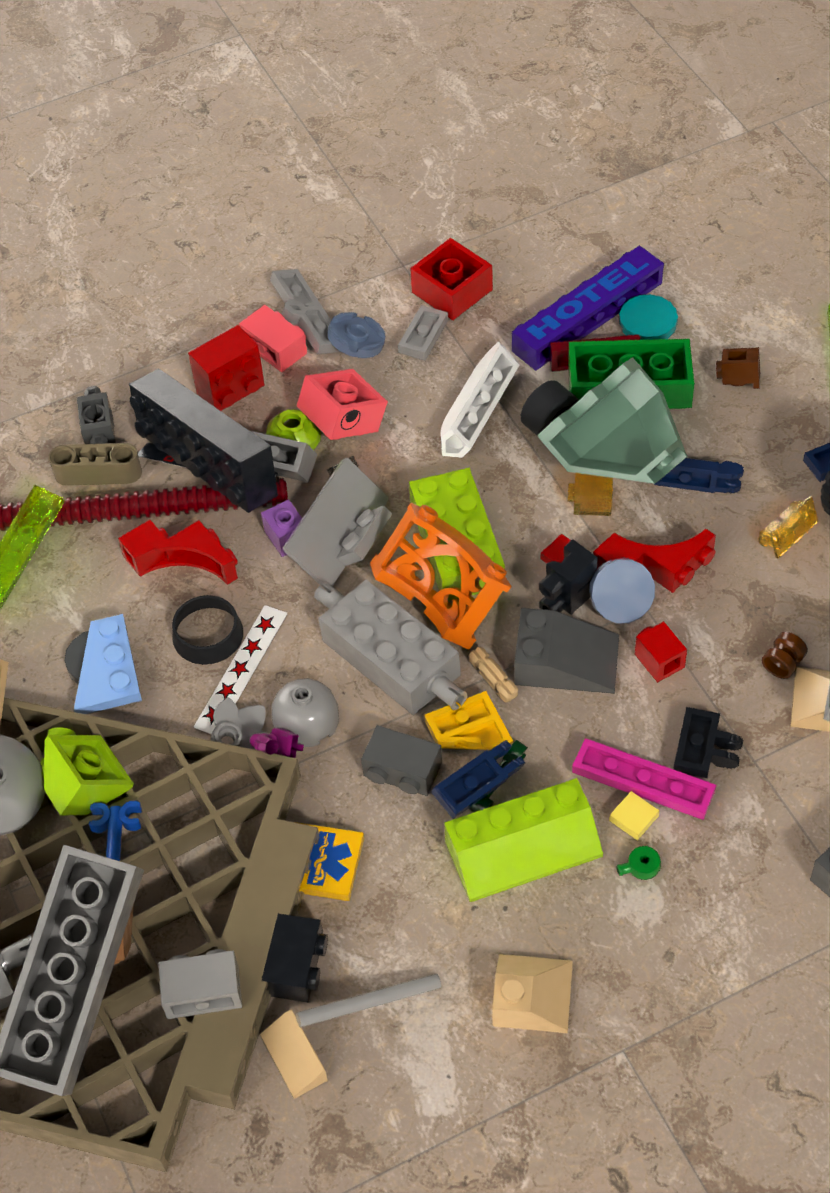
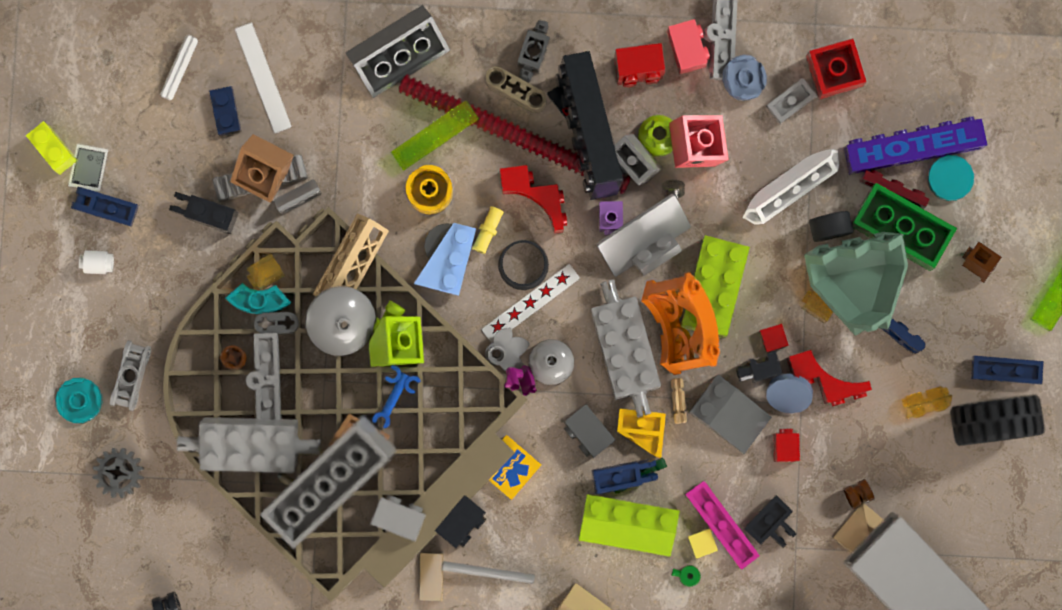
camera: 25 degrees right, 30 degrees up
(40, 604) = (420, 180): none -> yellow brick
(140, 615) = (487, 230): none -> light yellow pin

